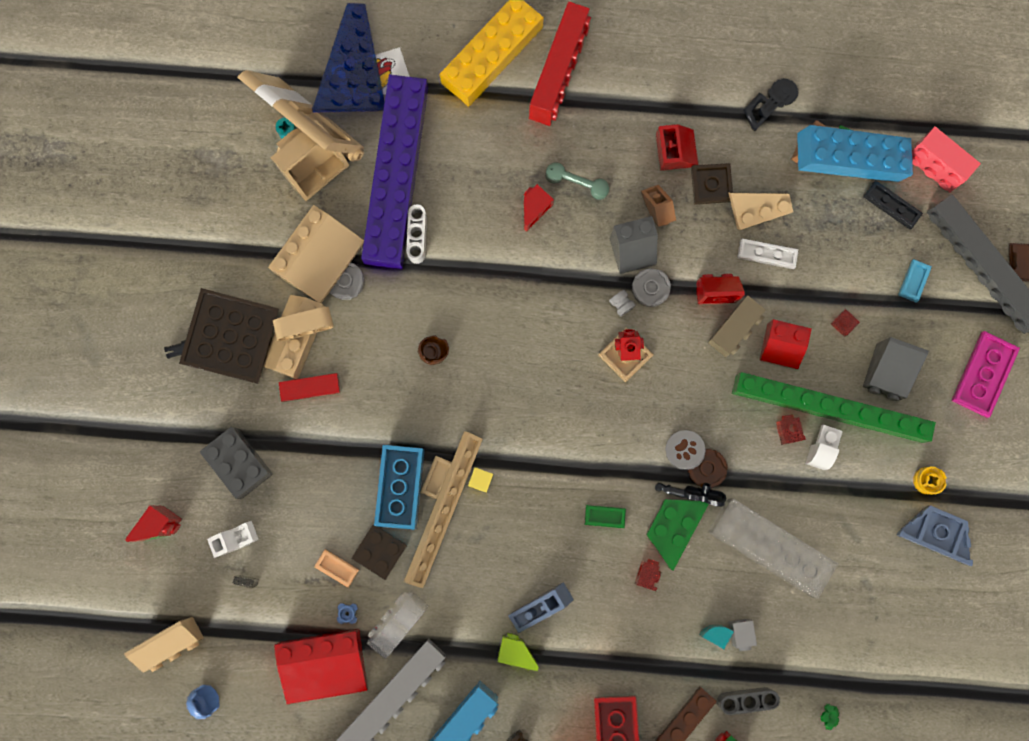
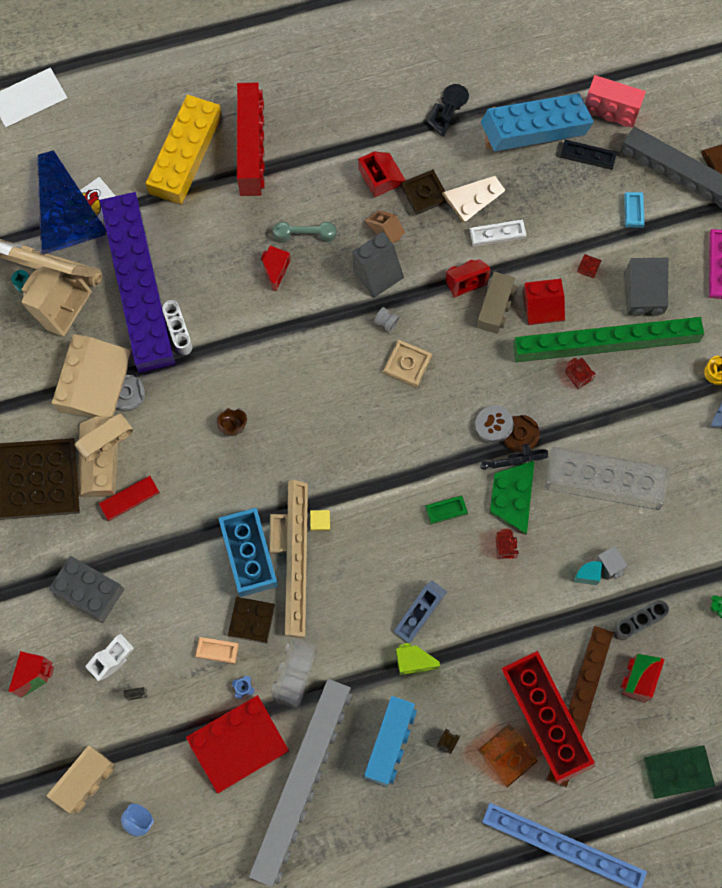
camera: 20 degrees left, 10 degrees down
(629, 345) = (412, 354): red brick -> none
(651, 287) = (407, 298): light grey tile -> none
(825, 451) = (616, 376): white brick -> none

